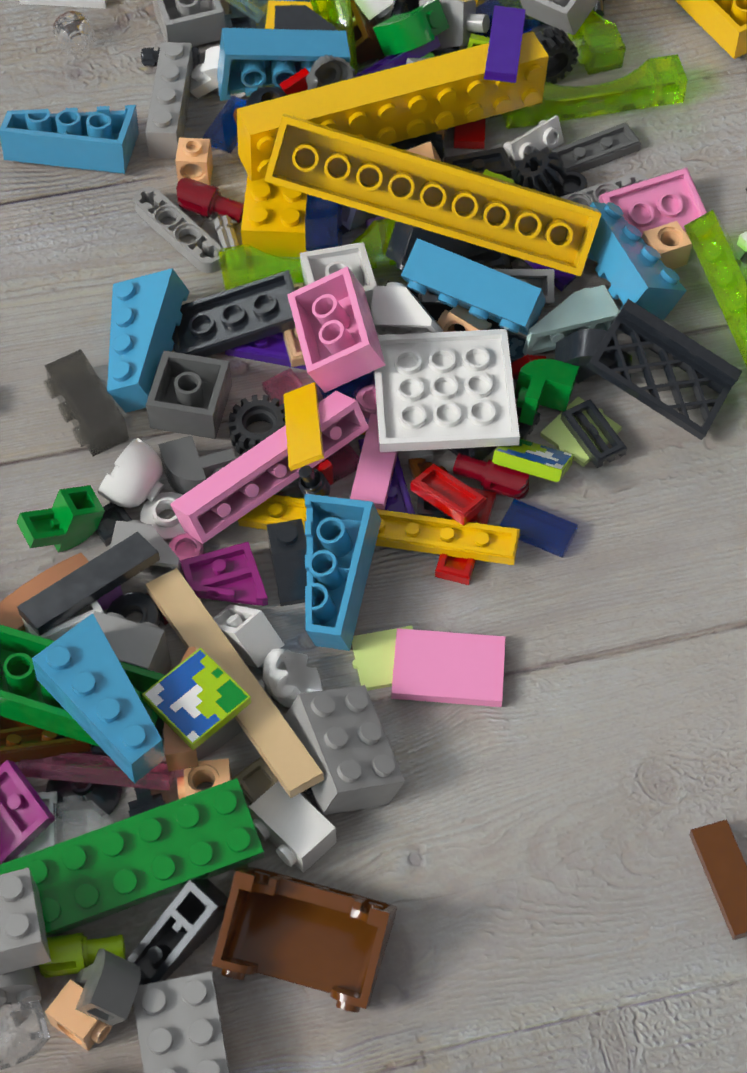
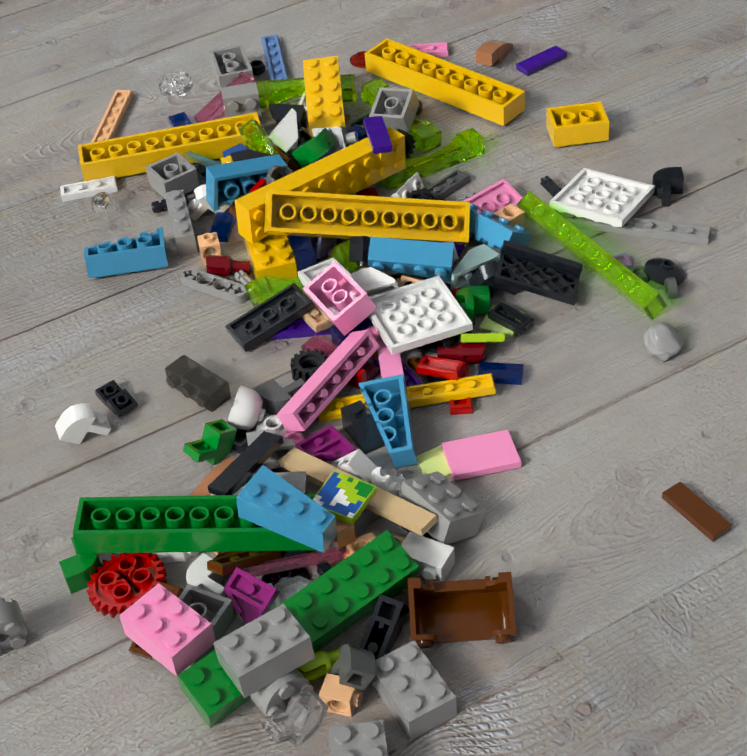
camera: 15 degrees left, 15 degrees down
(140, 331) = (218, 337): dark azure wedge -> none
(189, 394) = (260, 360): dark grey brick -> none
(303, 426) = (342, 350): yellow piece -> none
(313, 482) = (356, 378): black cylinder -> none

